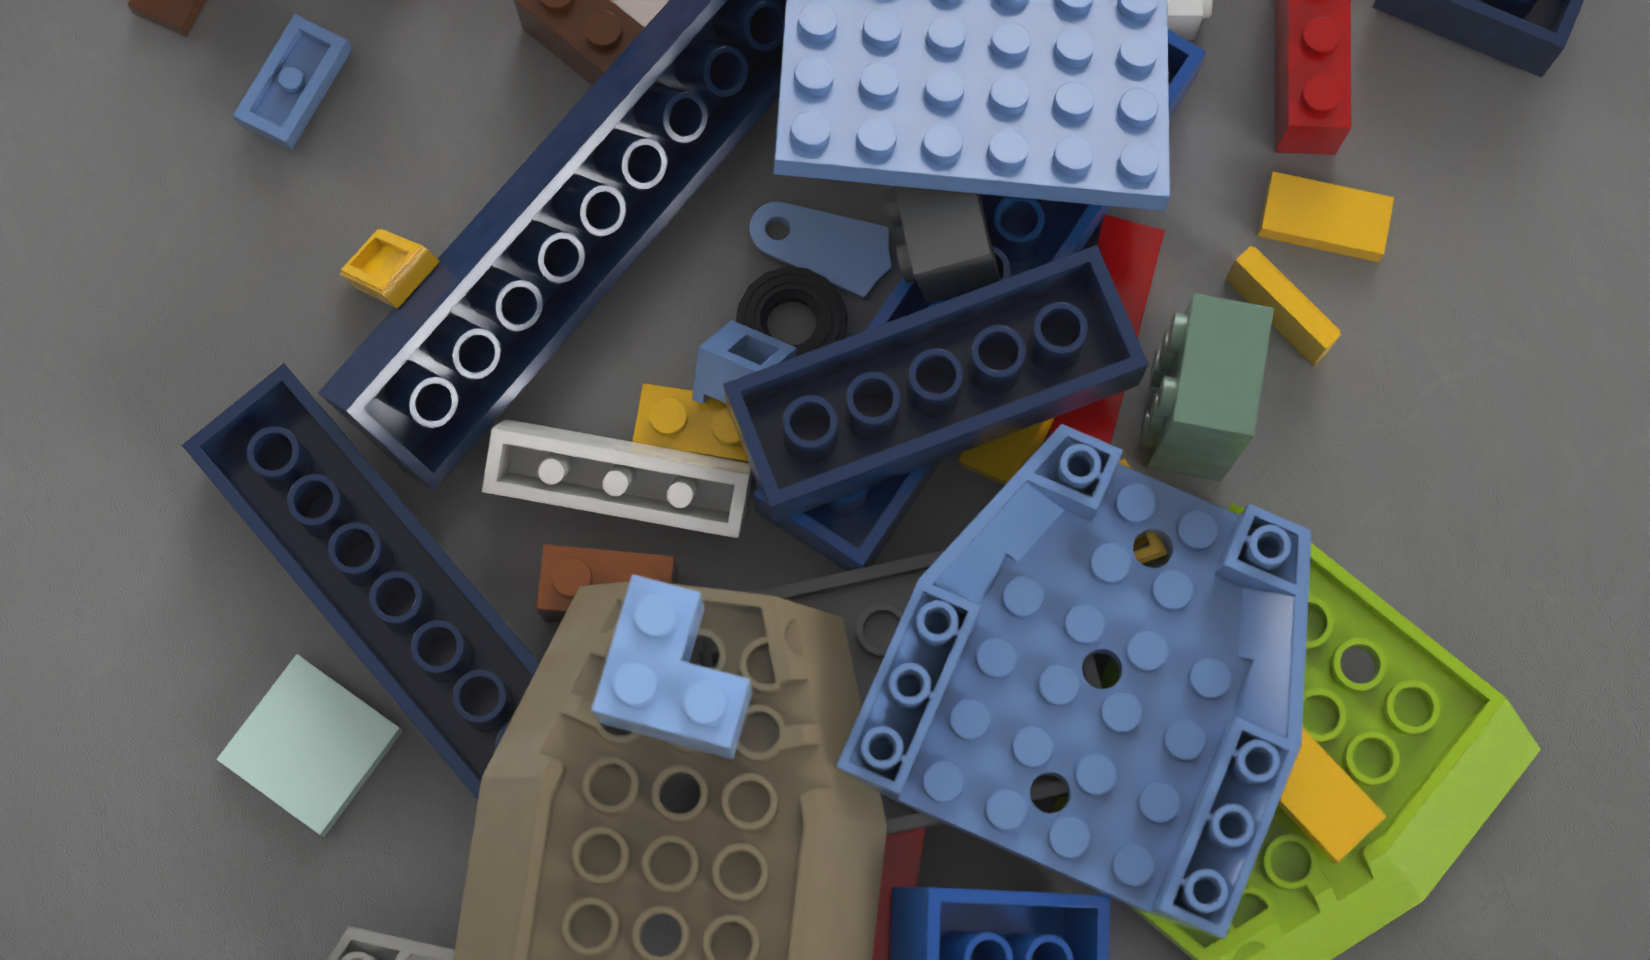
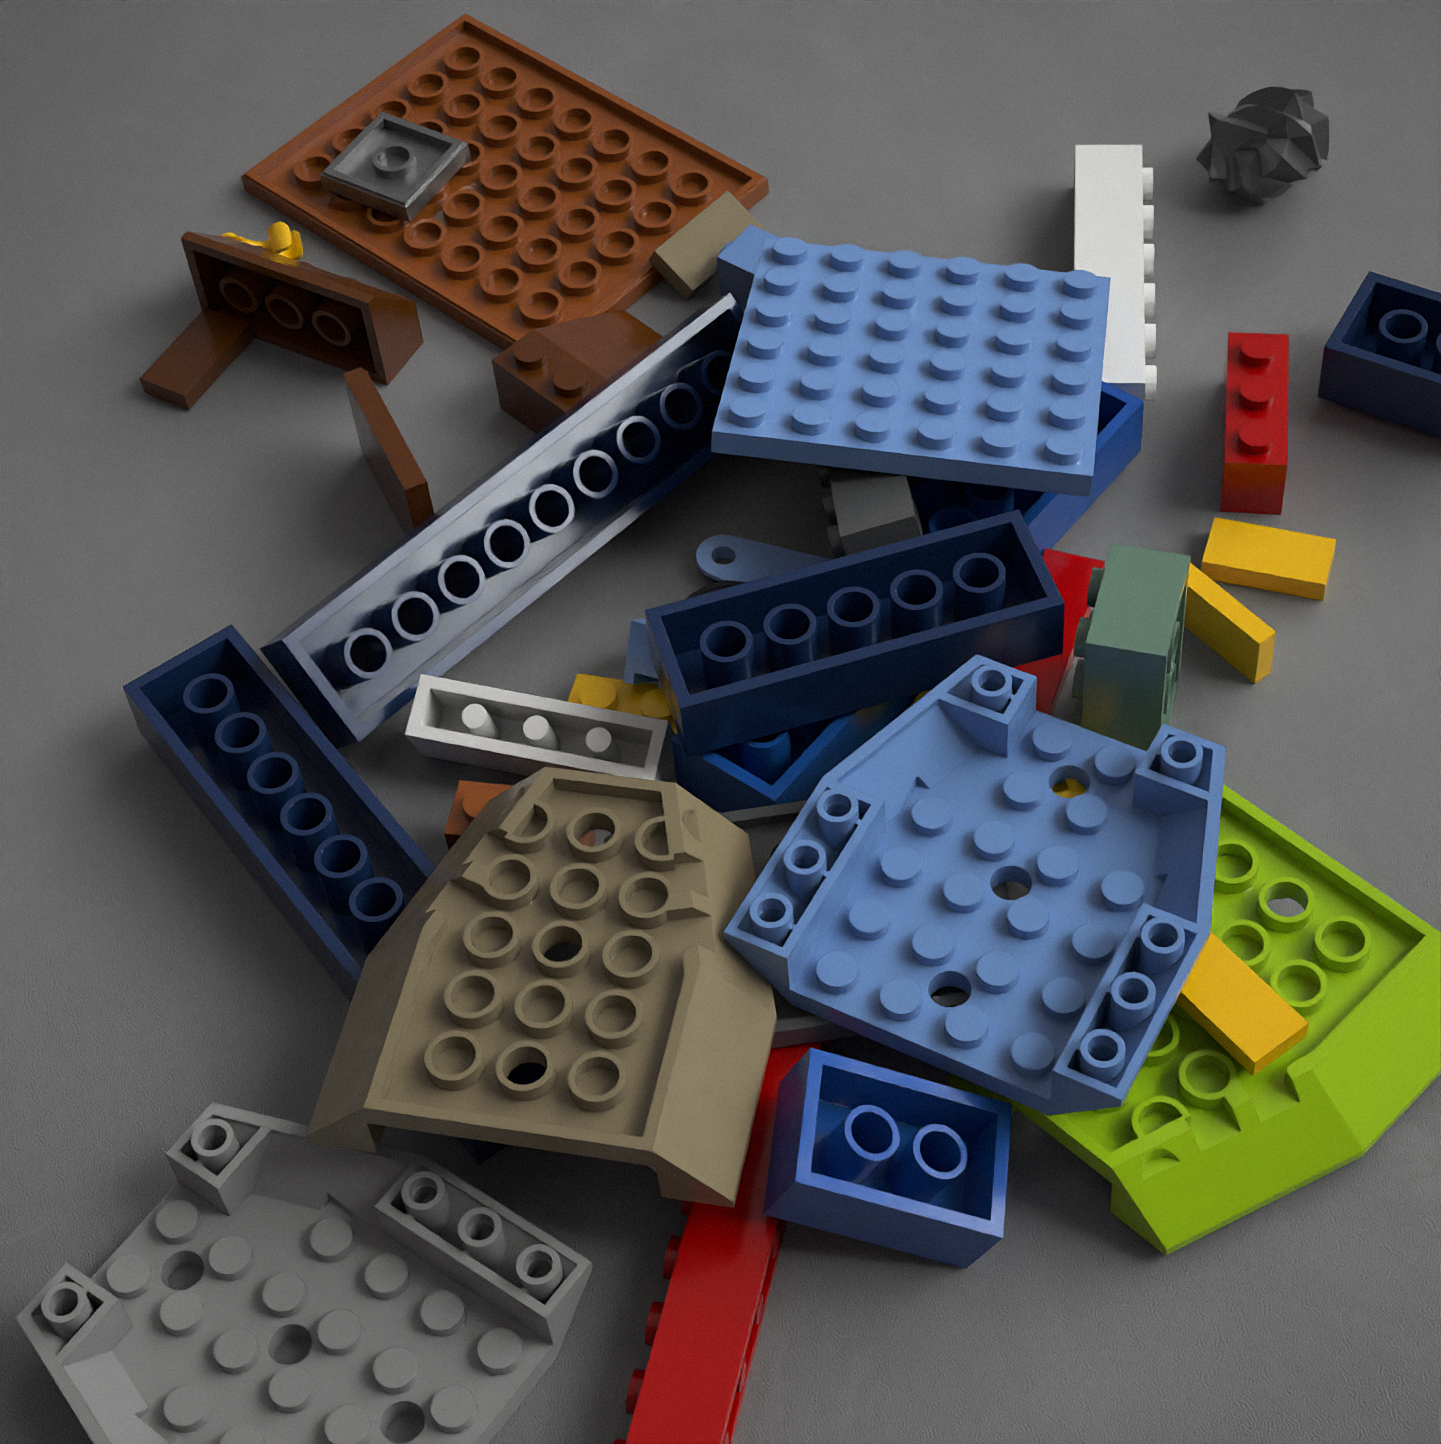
camera: 10 degrees right, 25 degrees down
(292, 82) = (279, 436): medium blue plate -> none
(310, 745) = (203, 971): light aqua tile -> none
(389, 267) = (344, 564): yellow tile -> none
(420, 132) = (387, 453): none -> reddish brown tile
(654, 687) = (553, 832): light blue brick -> none

